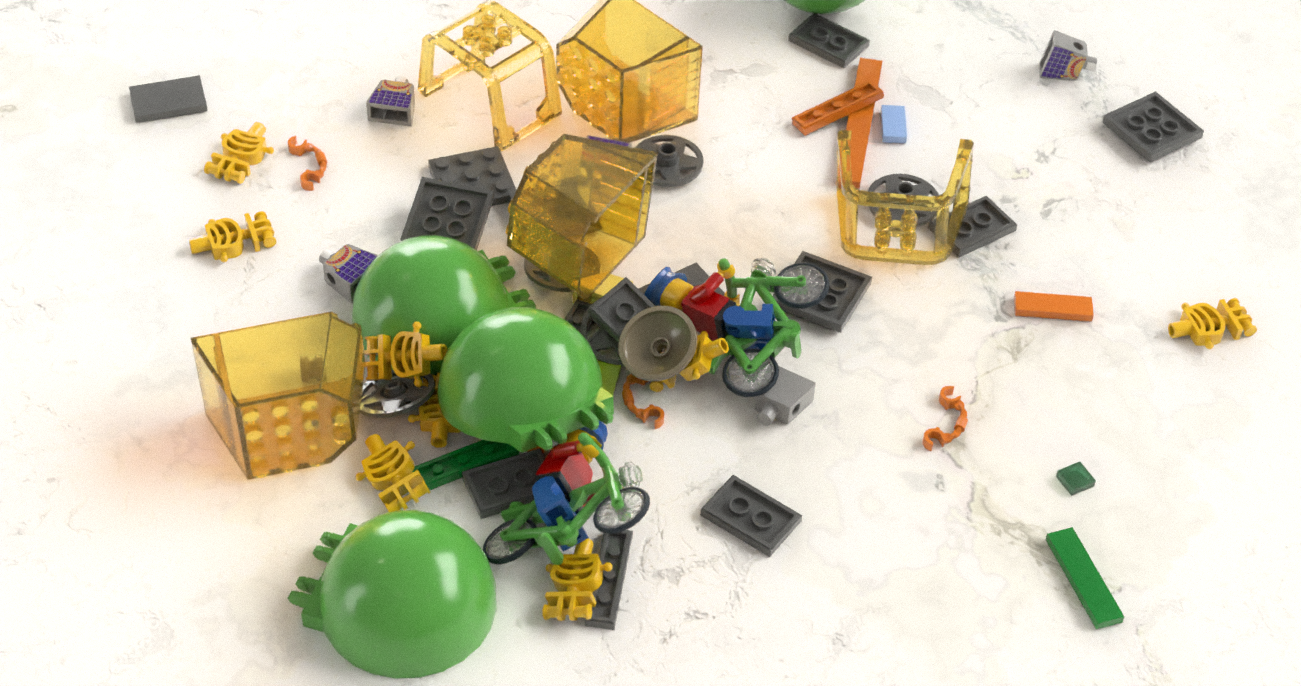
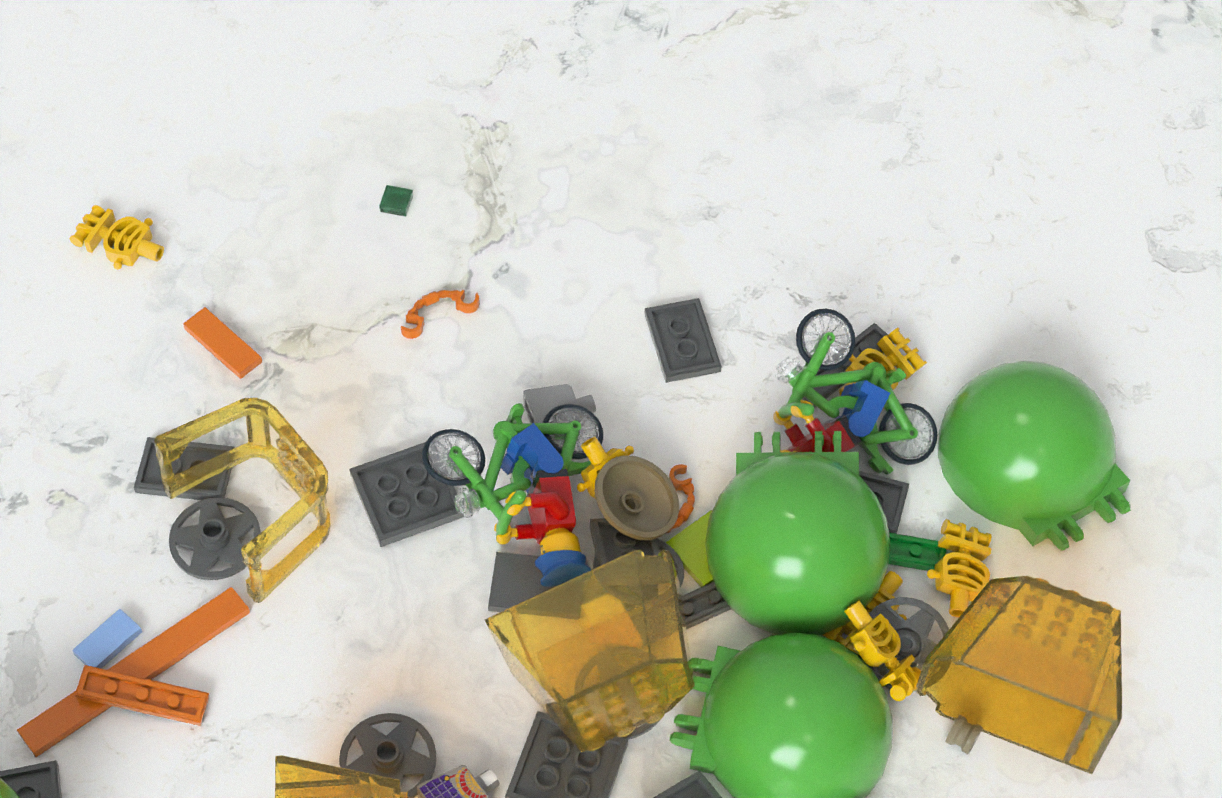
camera: 140 degrees left, 10 degrees up
(1084, 578) = (483, 133): green tile -> none

